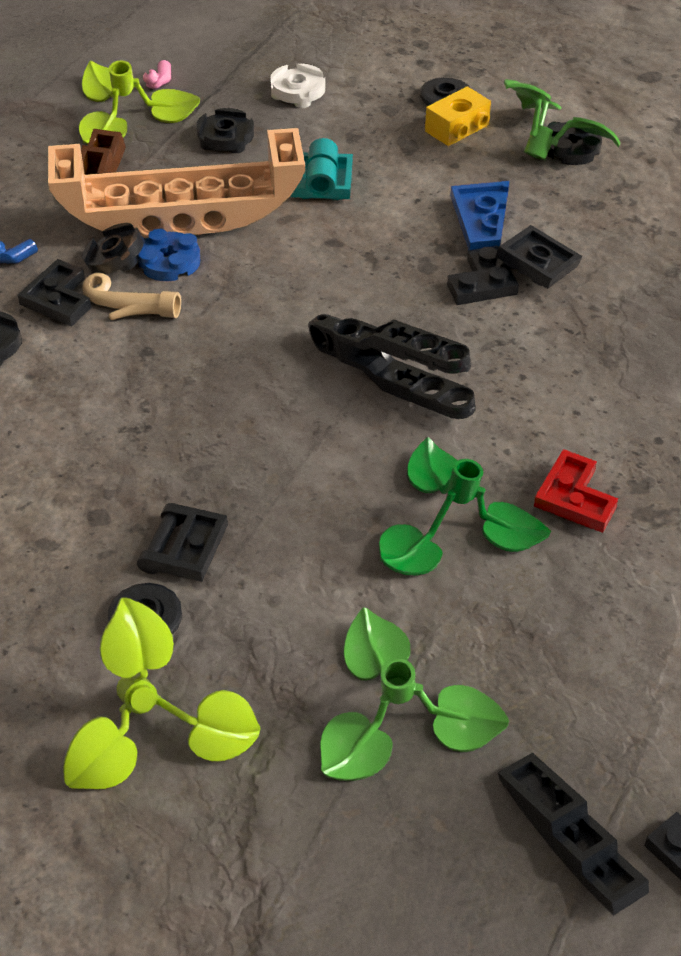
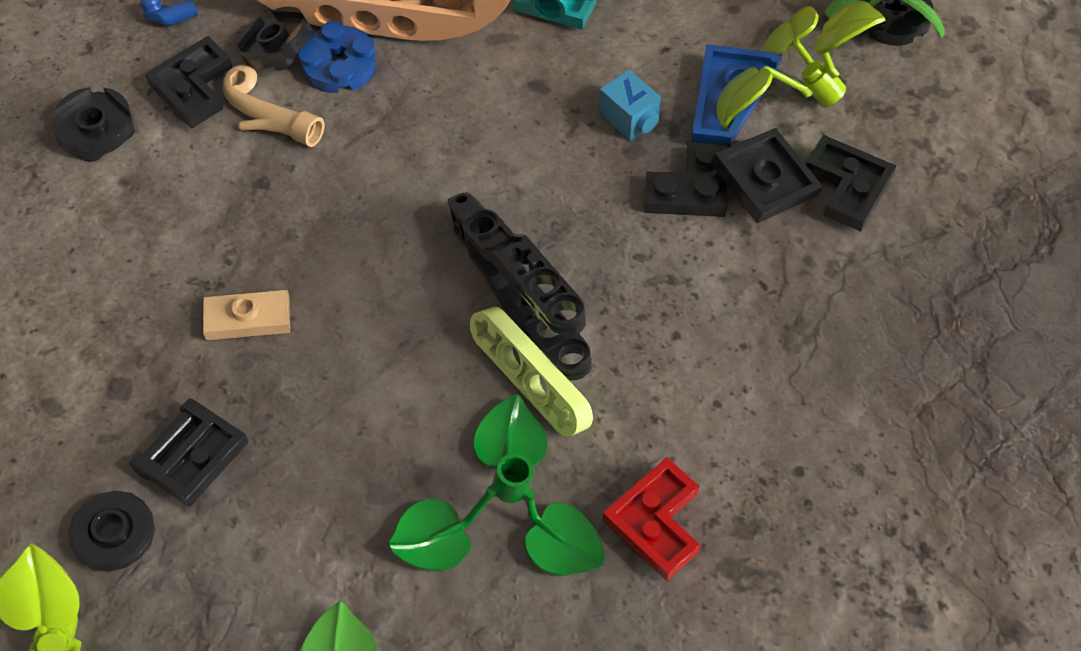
camera: 20 degrees right, 10 degrees up
(182, 440) = (246, 315): none -> tan plate
(414, 236) = (629, 105): none -> dark azure brick
(429, 419) = (563, 405): none -> yellowish green beam
(545, 189) = (818, 77): none -> lime plant
(605, 246) = (859, 180): none -> black plate

